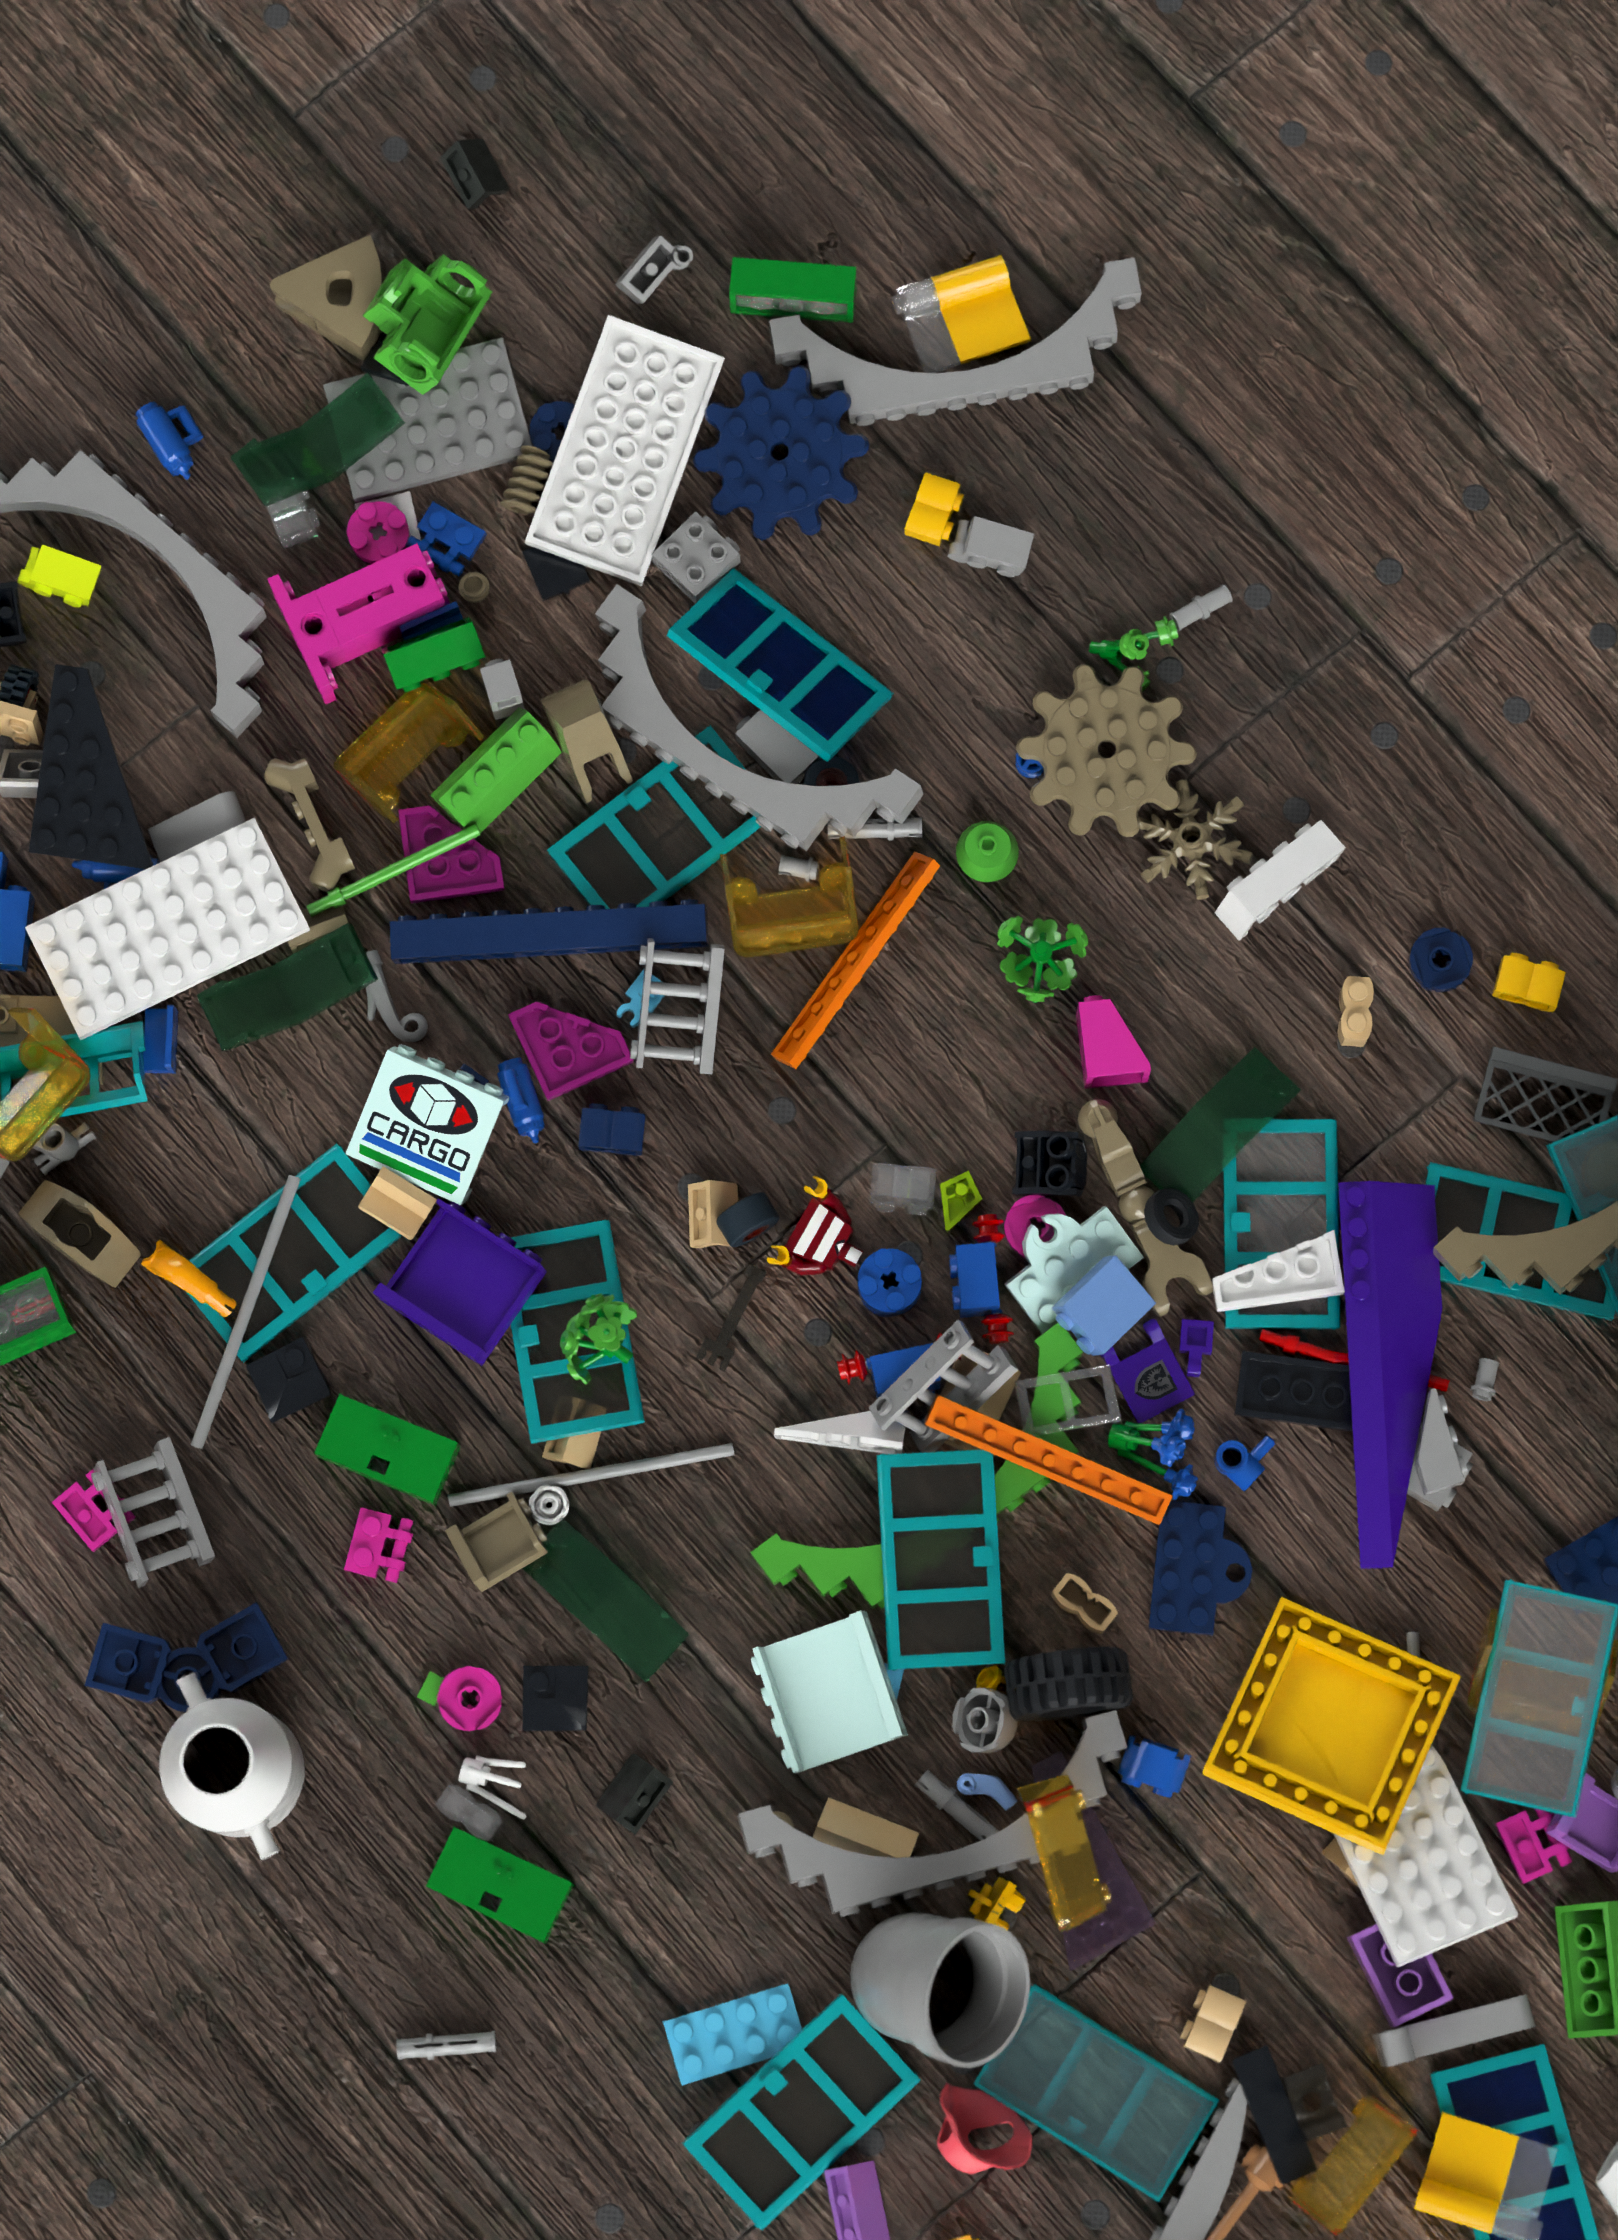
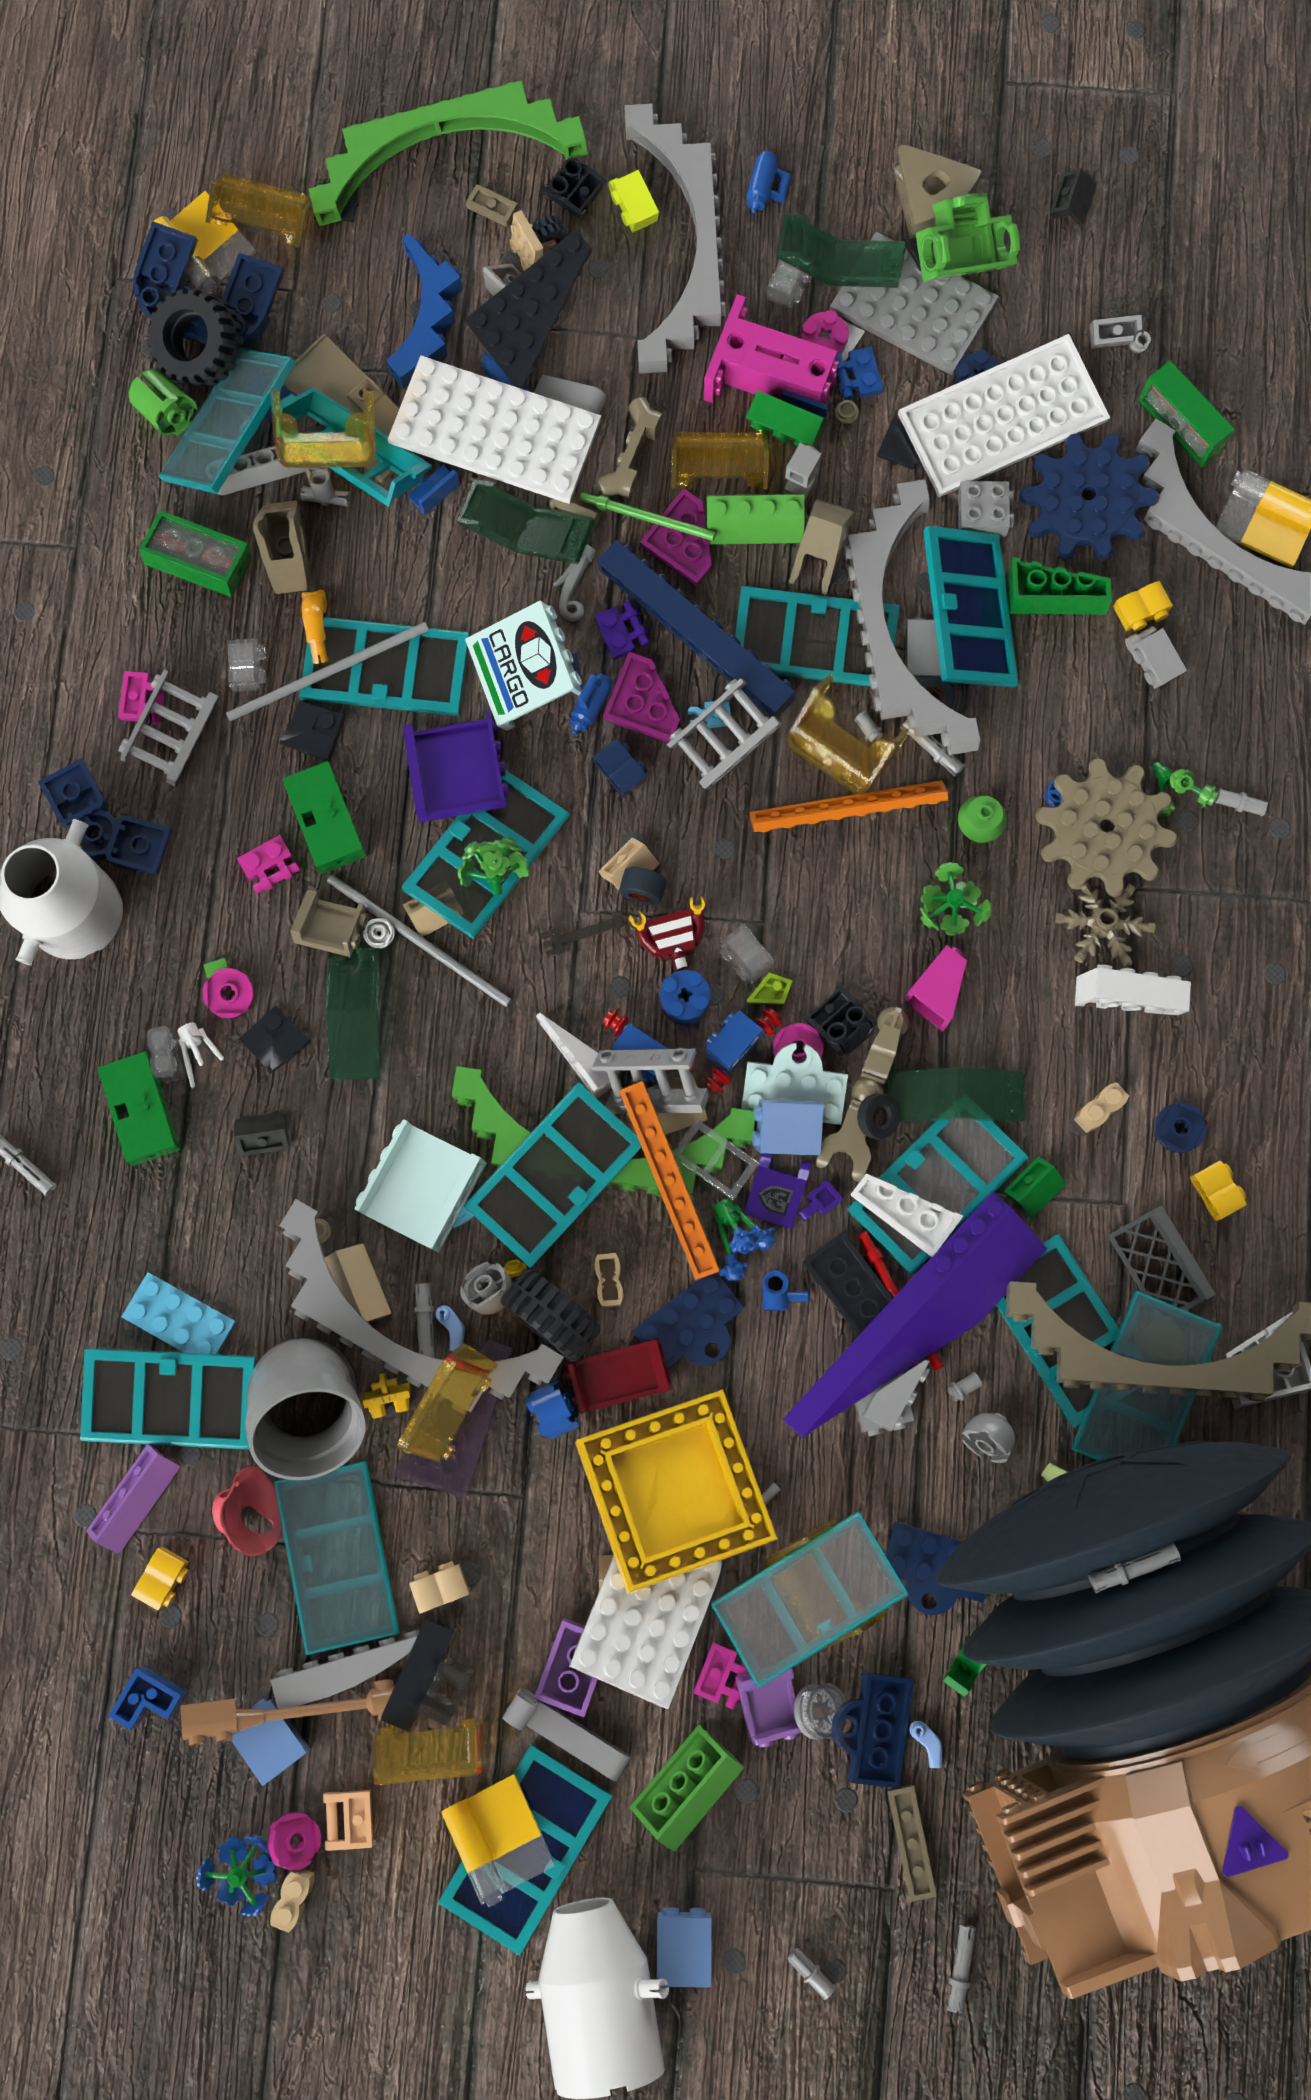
camera: 45 degrees right, 0 degrees up
(160, 1382) = (245, 665): none -> clear brick
(397, 1203) = (465, 693): tan panel -> none
(474, 1009) = (615, 633): none -> dark purple plate
(527, 480) = (932, 380): dark tan piece -> none
(840, 574) = (1056, 591): none -> green wedge
(1179, 1678) = (619, 1376): none -> dark red panel
(1368, 1140) = (1035, 1186): none -> green panel
(1550, 1399) = (989, 1435): none -> light grey cylinder

